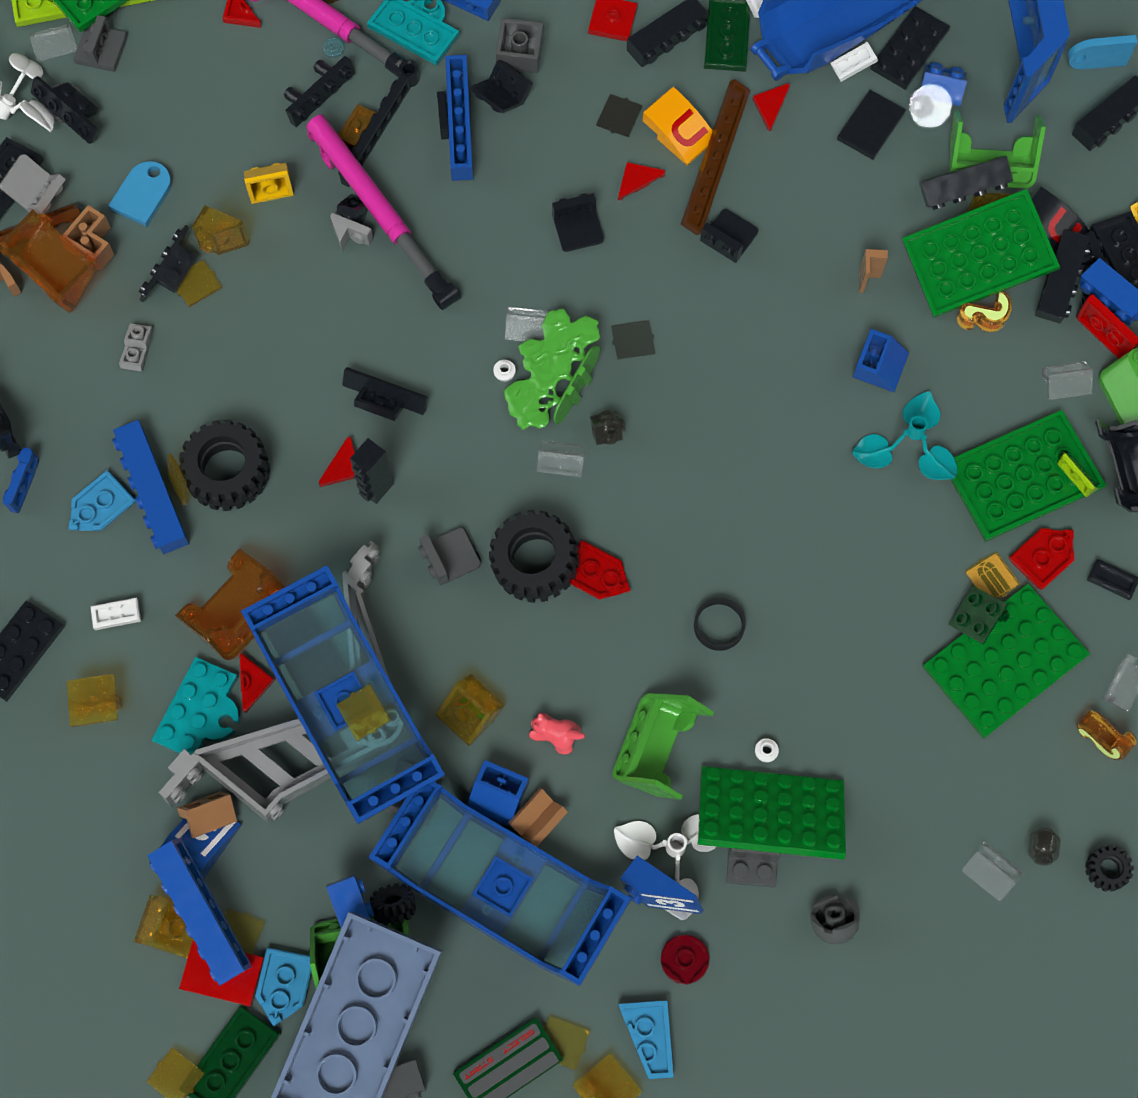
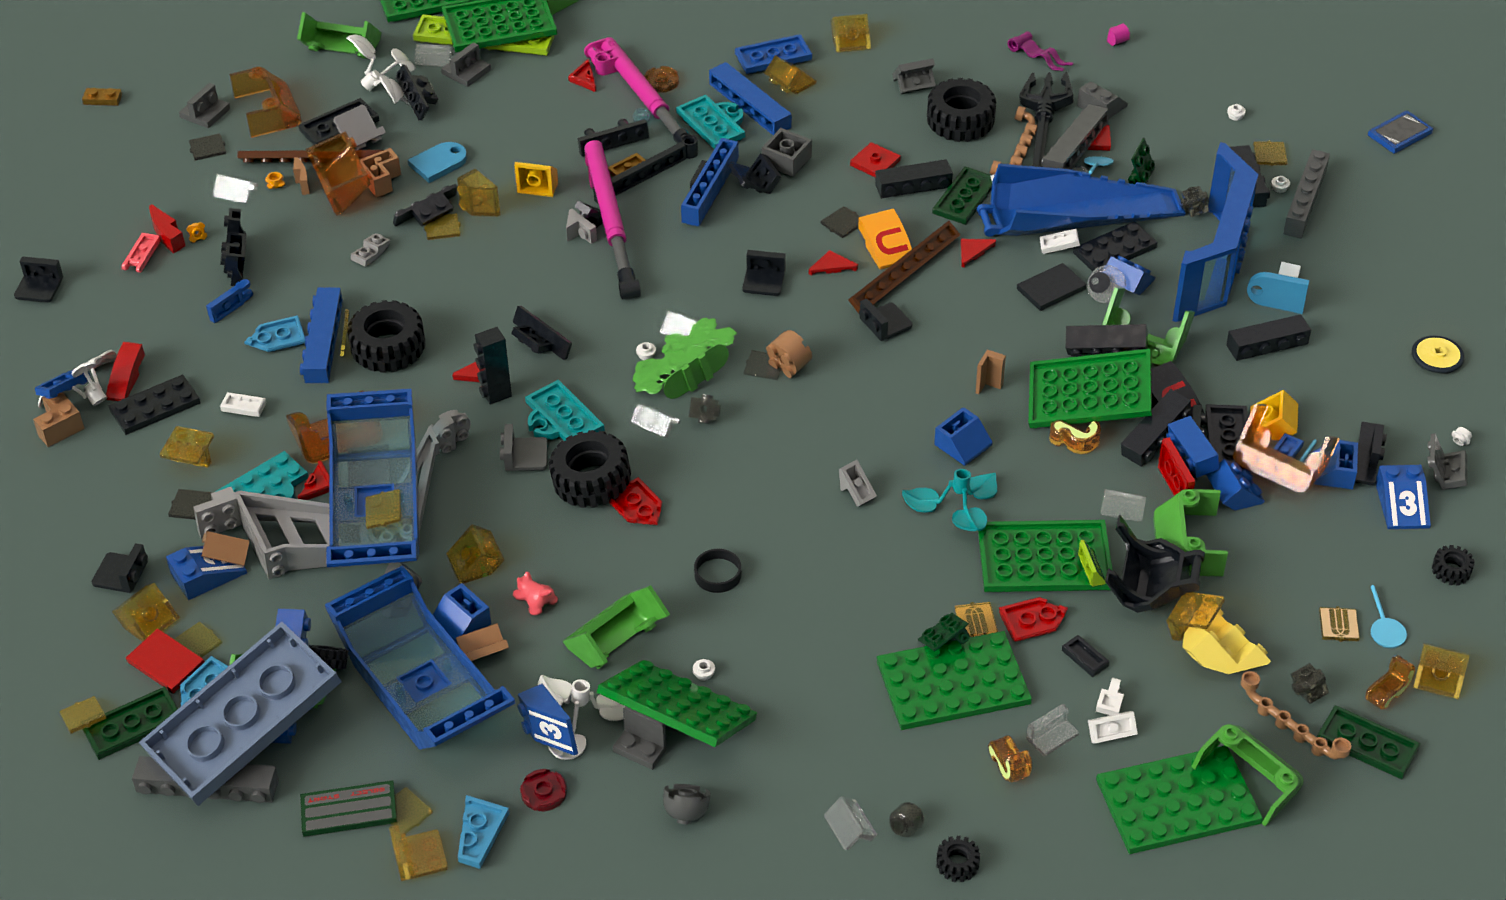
camera: 25 degrees right, 25 degrees down
(109, 884) = (121, 571): none -> black bracket
(132, 764) = (184, 502): none -> clear smoke piece
(199, 911) = (173, 601): blue brick -> none
(462, 491) = (559, 413): none -> teal plate
(658, 322) = (788, 353): none -> medium nougat brick
(807, 463) = (854, 479): none -> light grey slope
(1093, 17) = (1289, 269): none -> white slope

